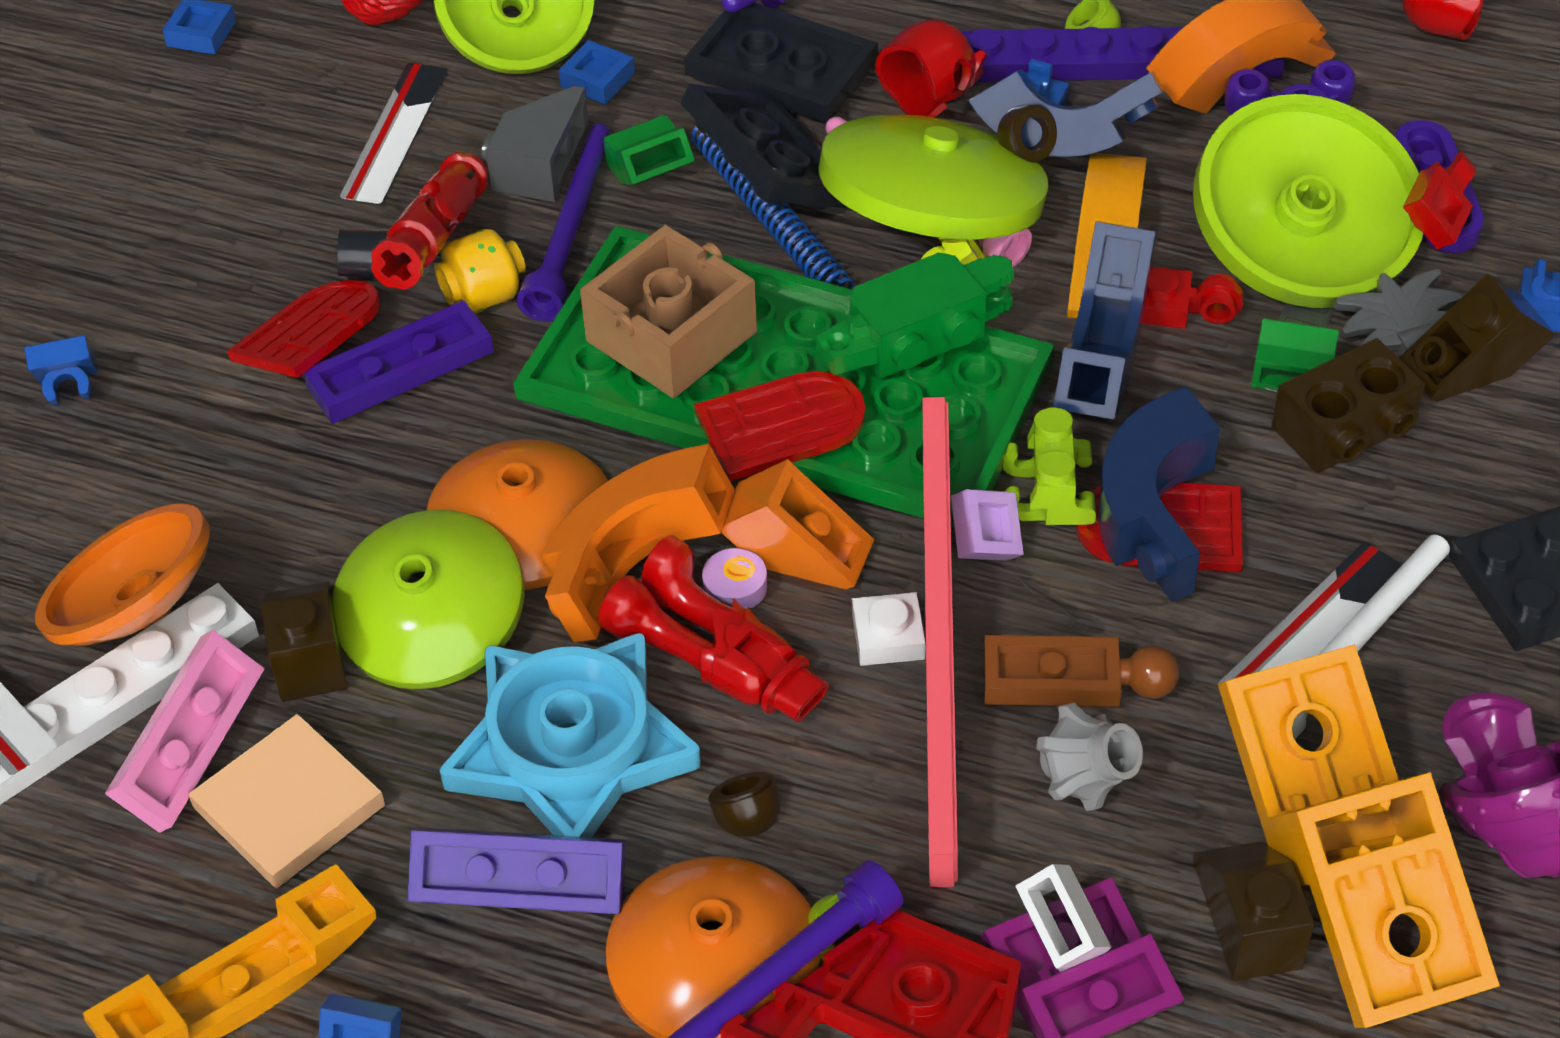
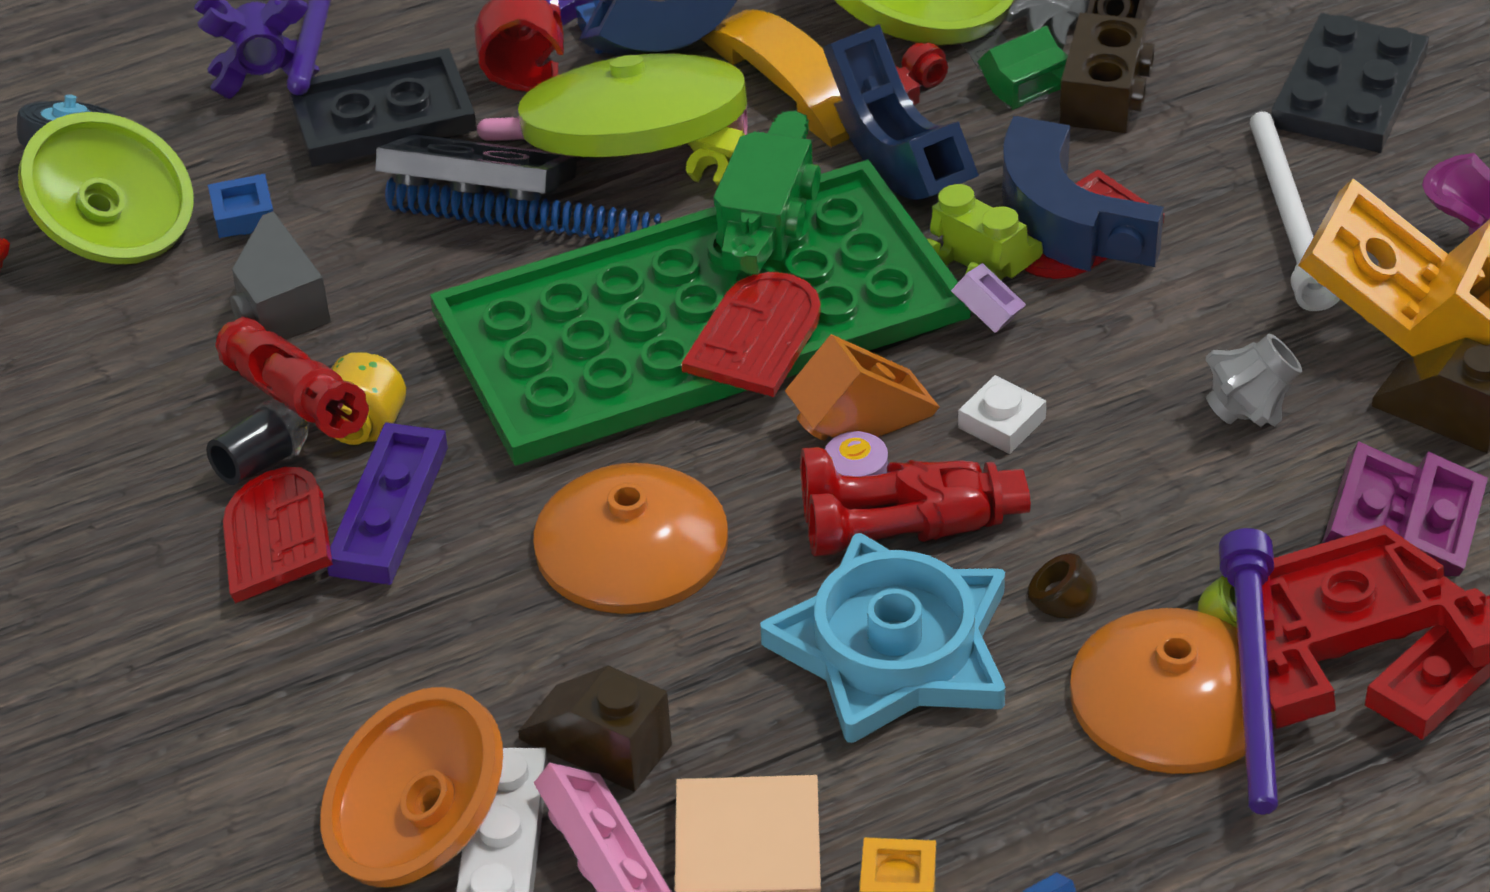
camera: 45 degrees left, 5 degrees down
(62, 360) = (98, 700): blue tile -> none
(393, 133) = (115, 362): sticker -> none
(444, 622) = (694, 651): lime dish -> none
(516, 870) = (989, 741): plate -> none
(545, 289) = (430, 376): dark purple piece -> none
(622, 523) = (744, 463): orange arch -> none
(647, 150) = (370, 234): green piece -> none
(669, 310) = (592, 304): medium nougat brick -> none
(939, 647) = (1067, 381): coral tile -> none
(1010, 132) = (653, 35): dark brown piece -> none
(1063, 880) = (1378, 479): white piece -> none
(1072, 671) = (1158, 348): dark orange plate -> none
(1321, 613) = (1251, 224): sticker -> none

